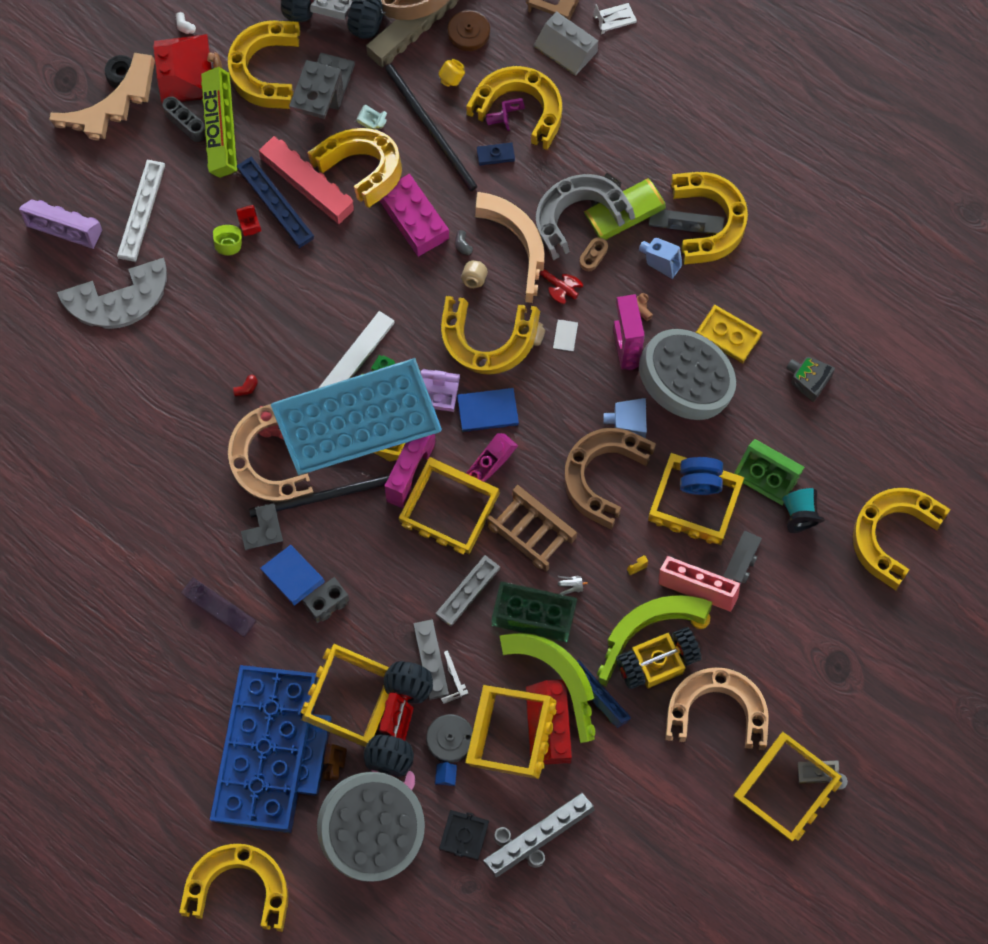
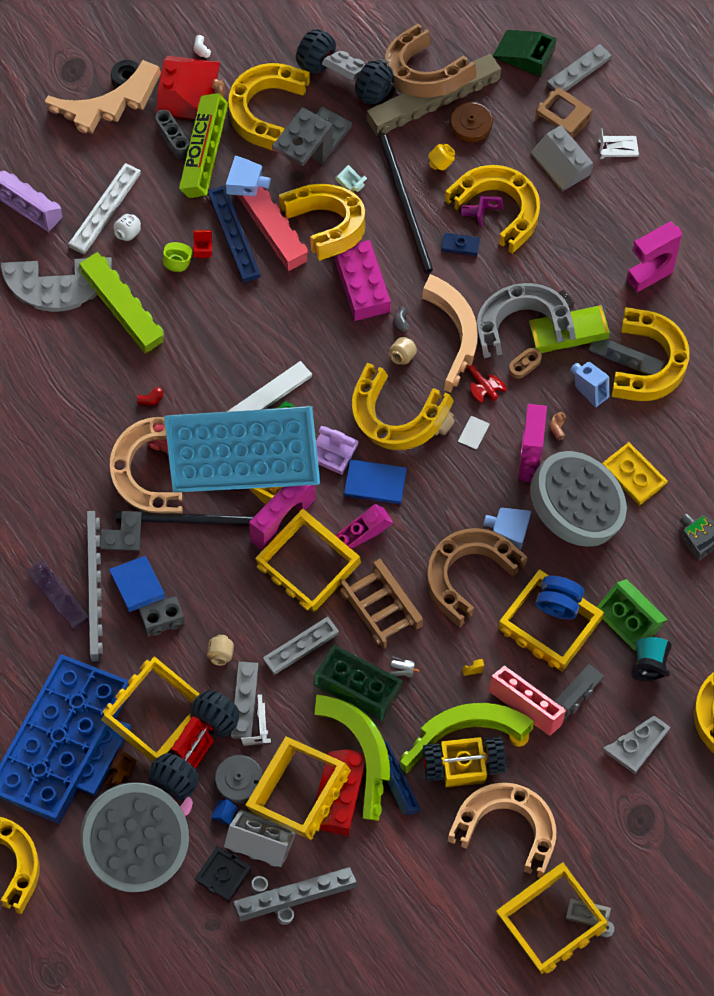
camera: 15 degrees right, 5 degrees down
(169, 223) = (127, 227): none -> white head
(188, 300) = (121, 302): none -> lime brick
(254, 596) = (95, 594): none -> light grey plate
(271, 144) = (245, 178): none -> light blue torso
(392, 617) = (220, 650): none -> tan head
(488, 790) = (259, 838): none -> light grey slope
(688, 116) = (658, 256): none -> dark pink arch
(813, 595) = (636, 746): none -> light grey wing

